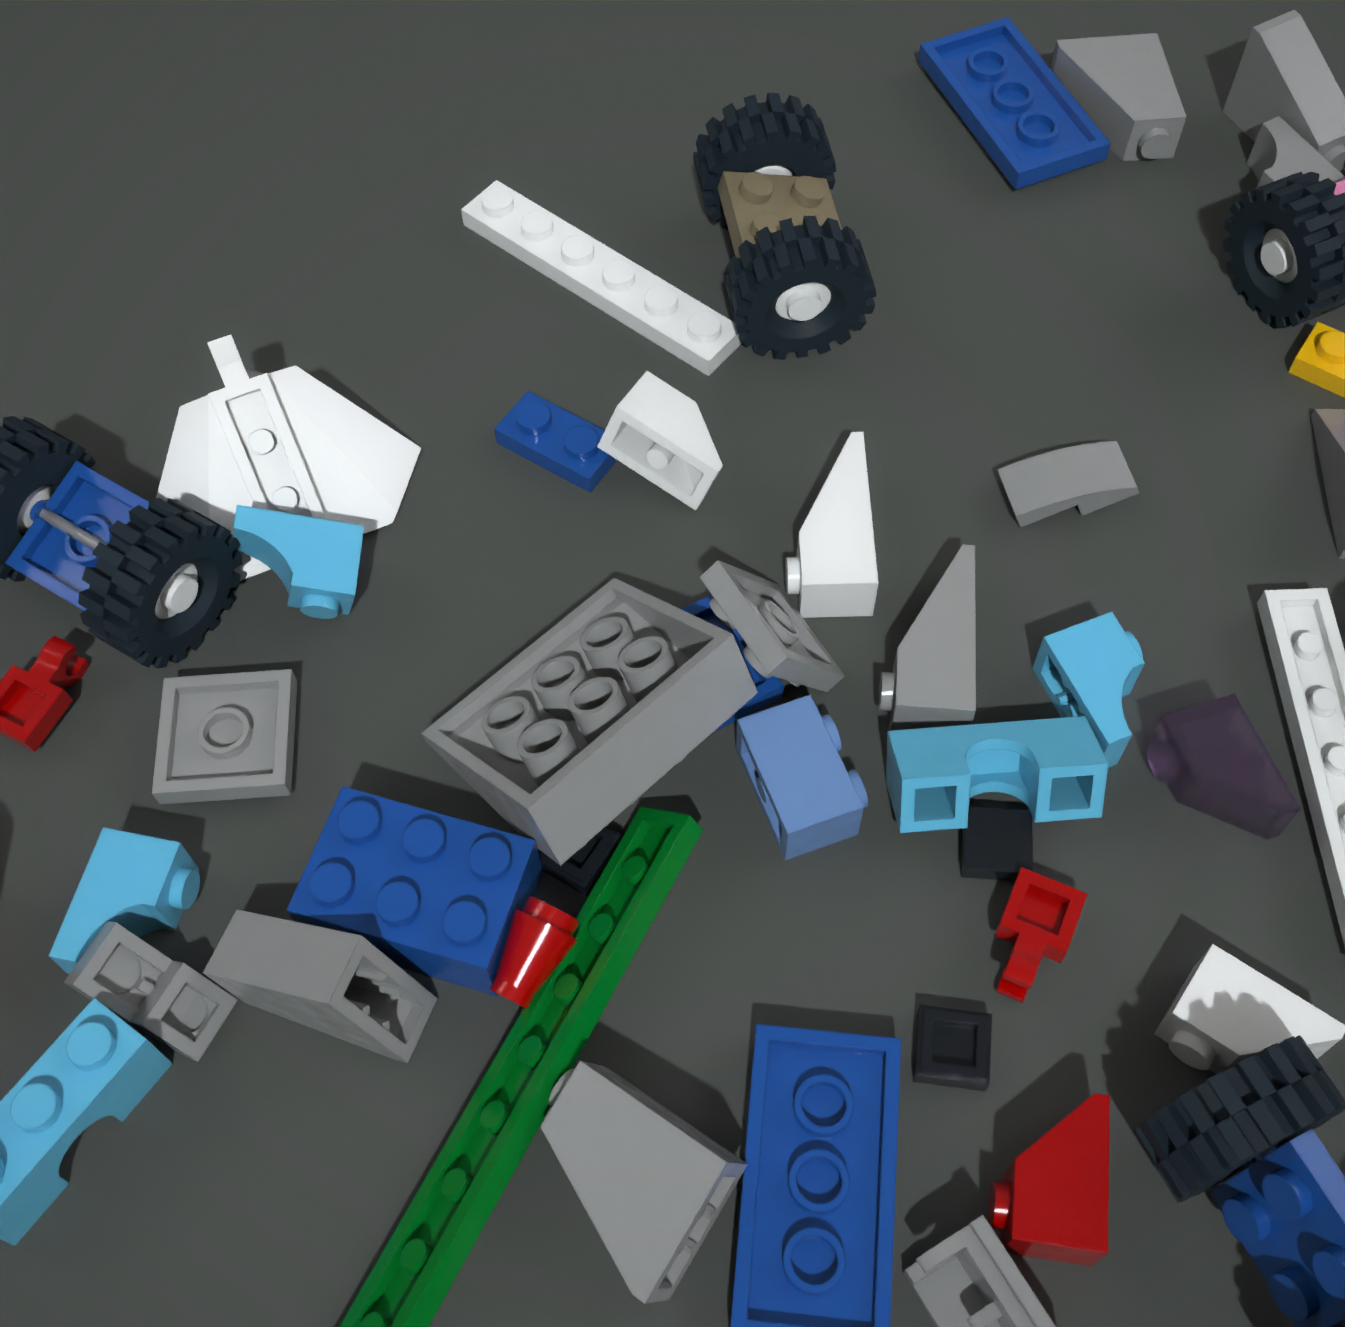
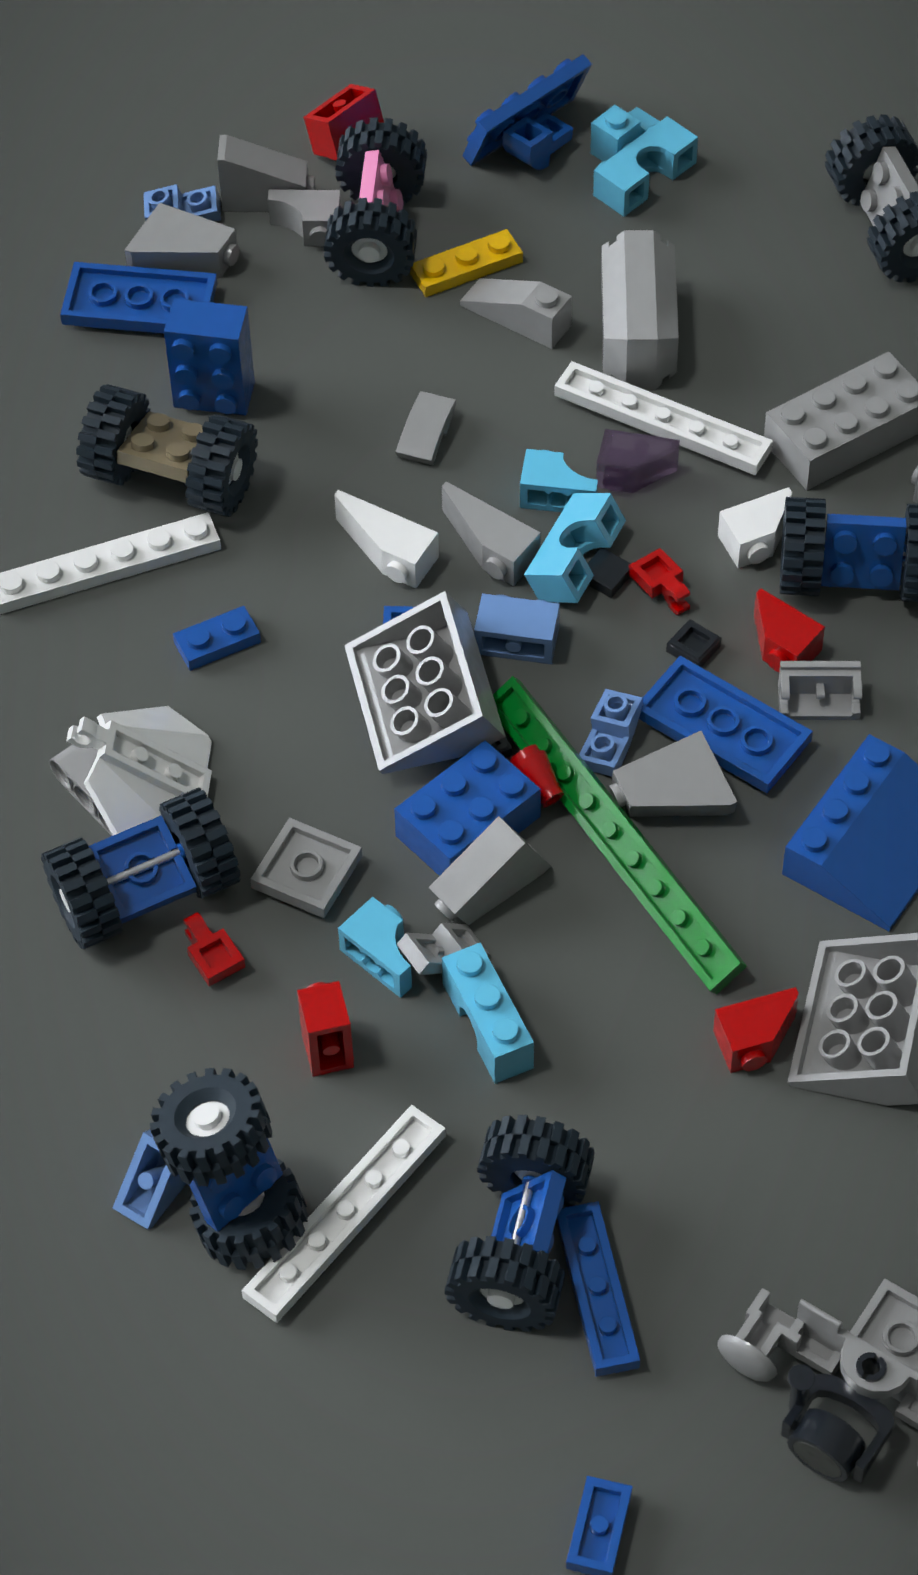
camera: 60 degrees left, 5 degrees down
(309, 554) = (229, 775): medium azure arch -> none
(663, 440) = (266, 582): white slope -> none
(692, 1018) = (611, 731): none -> medium blue slope
(771, 626) = (415, 591): light grey plate -> none
(952, 182) = (209, 356): none -> blue brick
(1199, 82) = (200, 202): none -> medium blue slope

